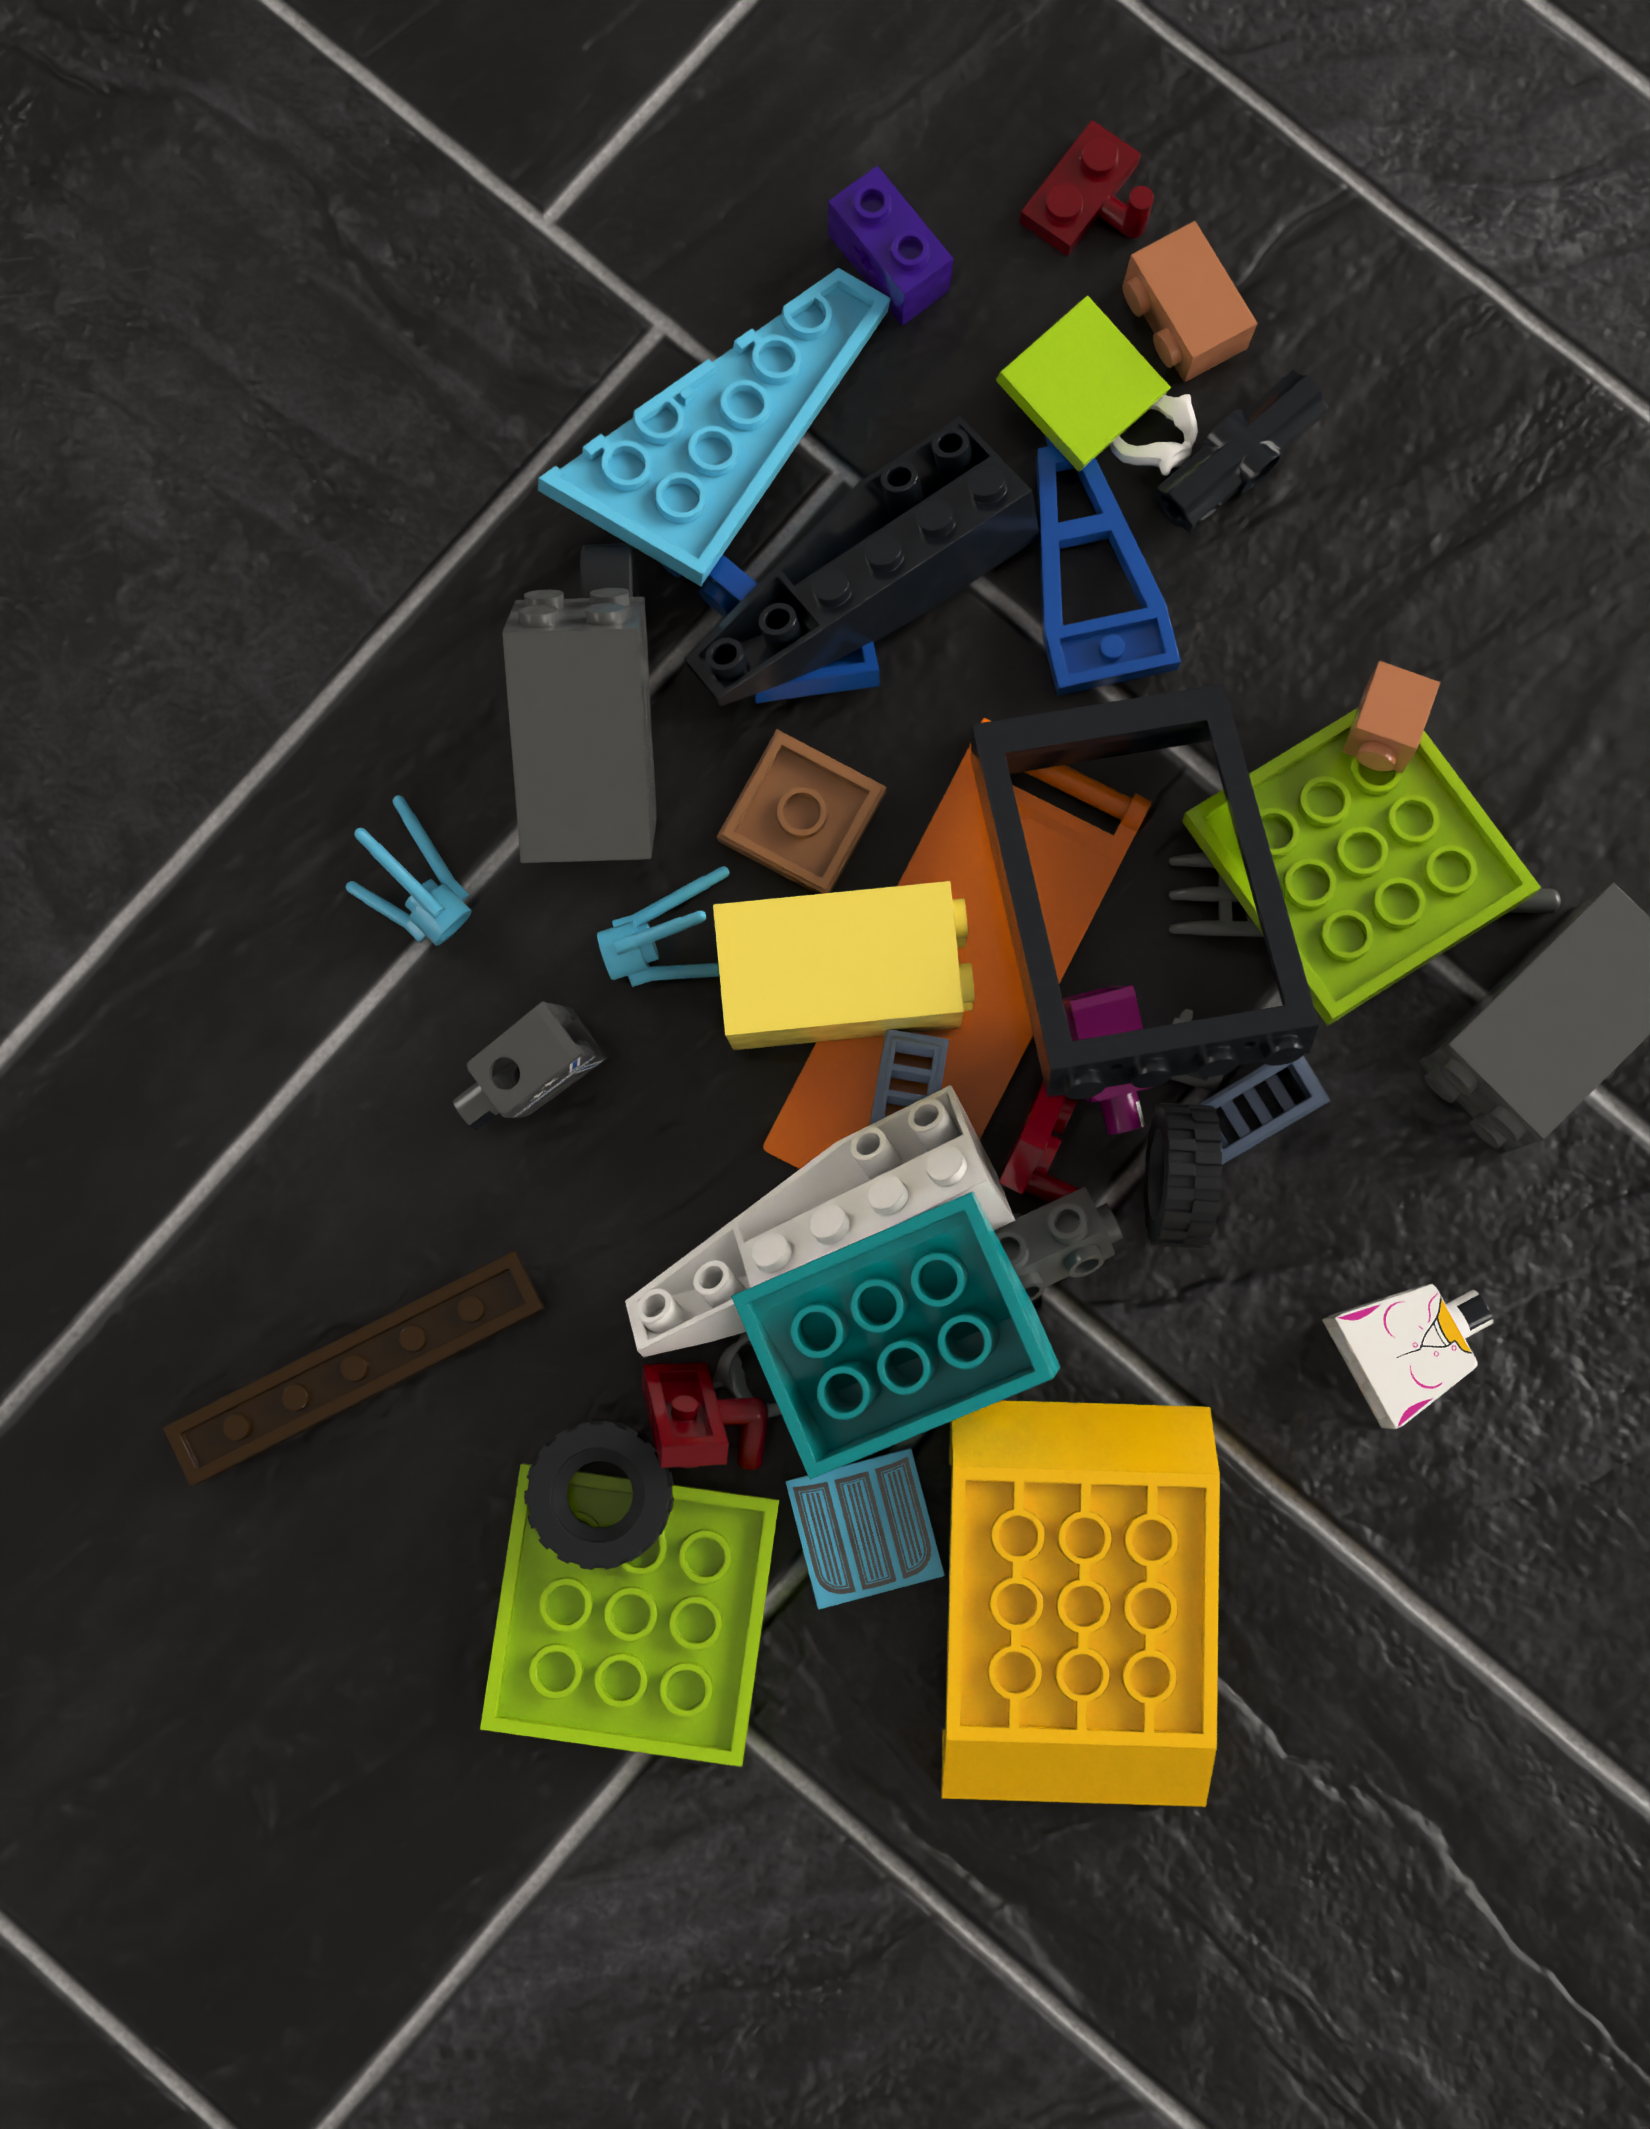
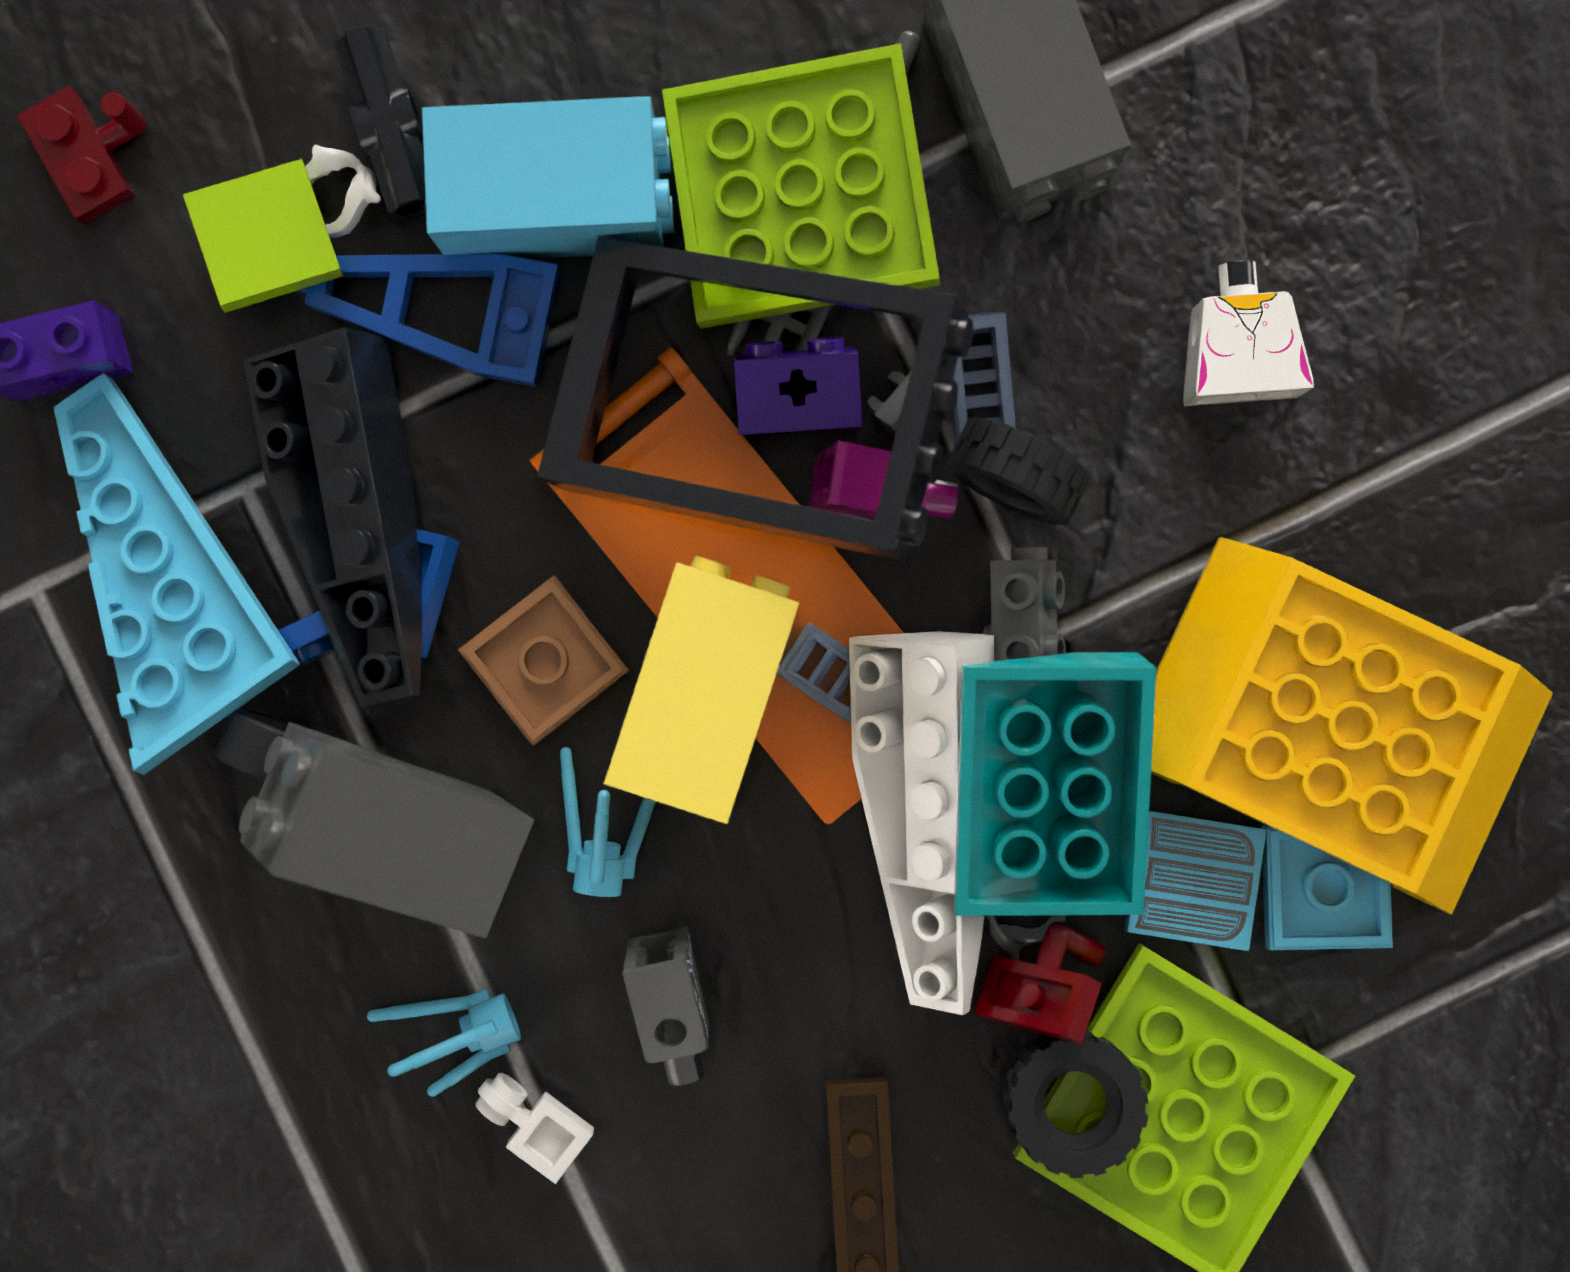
camera: 65 degrees left, 5 degrees up
(357, 1009) = (546, 1136): none -> white plate
(899, 1662) = (1320, 899): none -> medium azure tile
(1036, 1148) = (940, 589): dark red plate -> none
(1136, 915) = (826, 405): none -> dark purple brick
(1188, 302) = (228, 107): nougat brick -> none
(1257, 613) = (546, 176): none -> medium azure brick
(1391, 718) = (695, 103): nougat brick -> none

